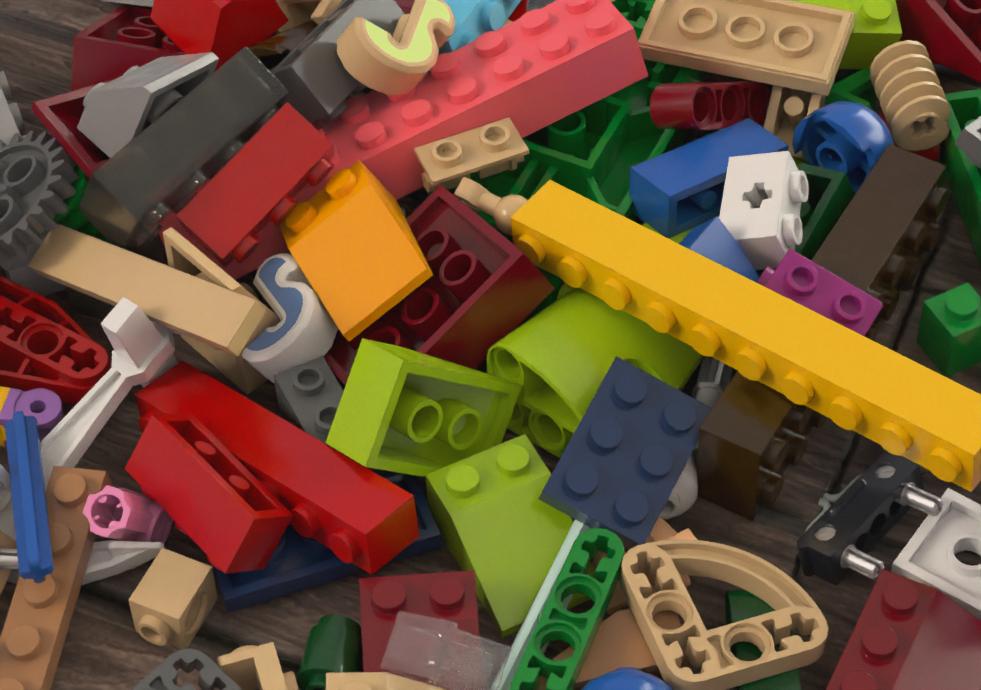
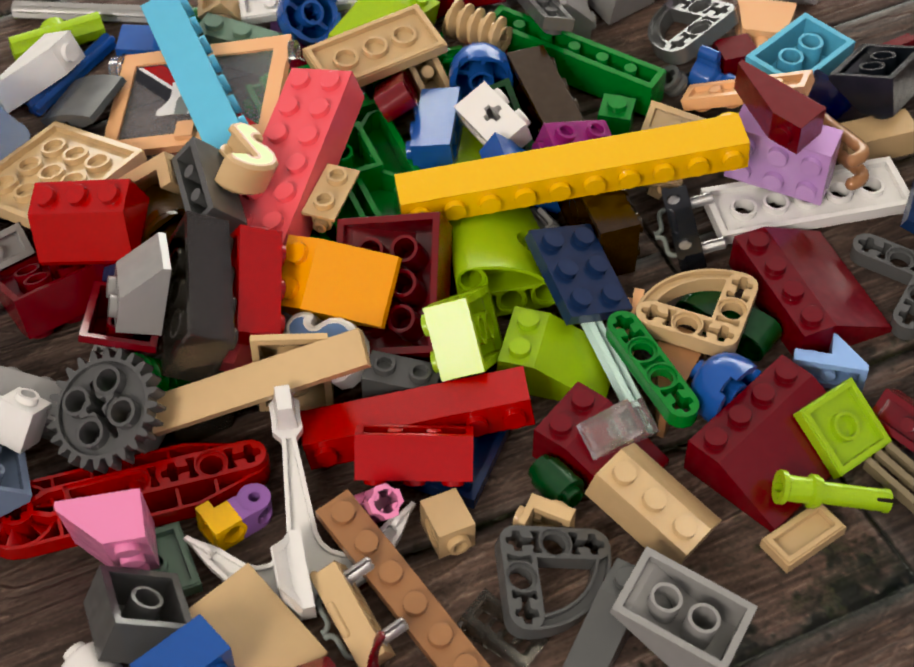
camera: 50 degrees left, 0 degrees up
(28, 498) = (330, 532): blue axle -> none
(480, 199) = (381, 206): tan arm -> none

